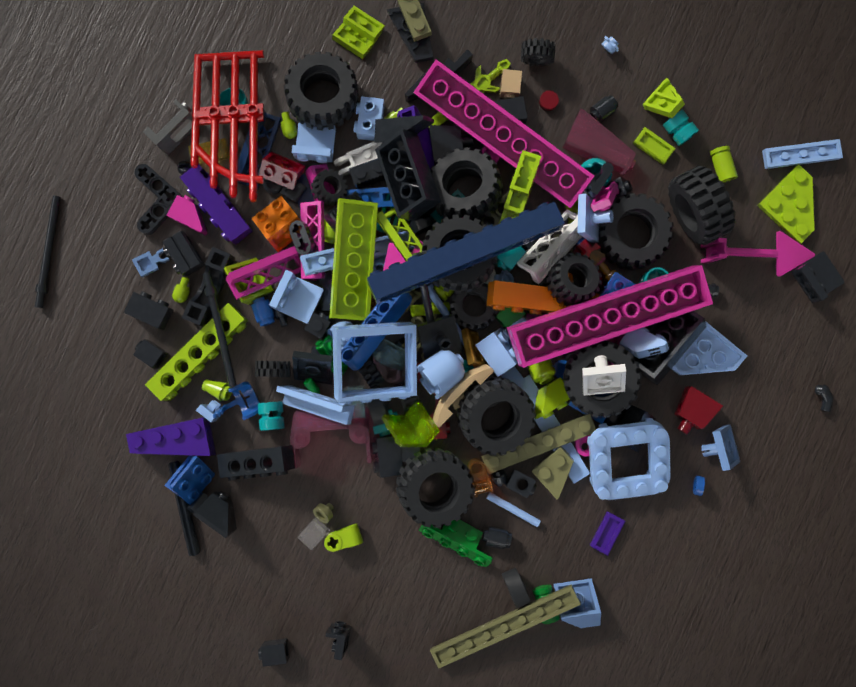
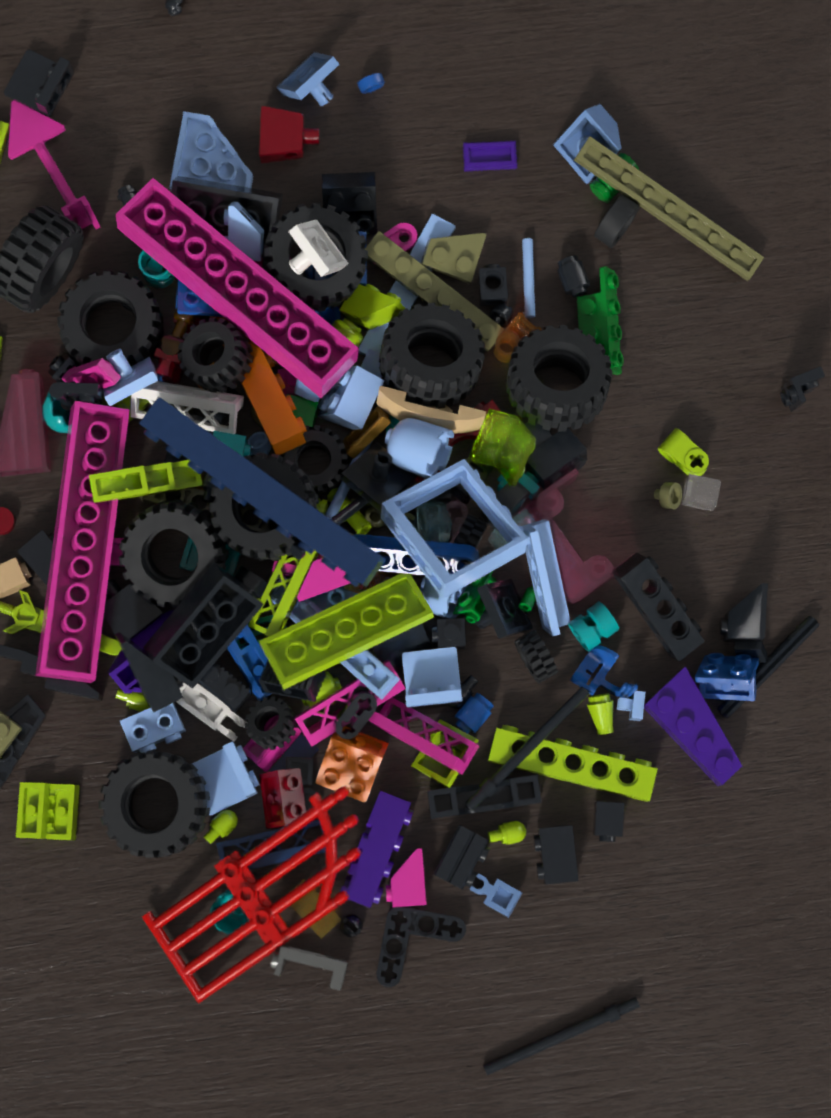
camera: 125 degrees left, 5 degrees down
(629, 434) = (379, 213): light blue plate -> none

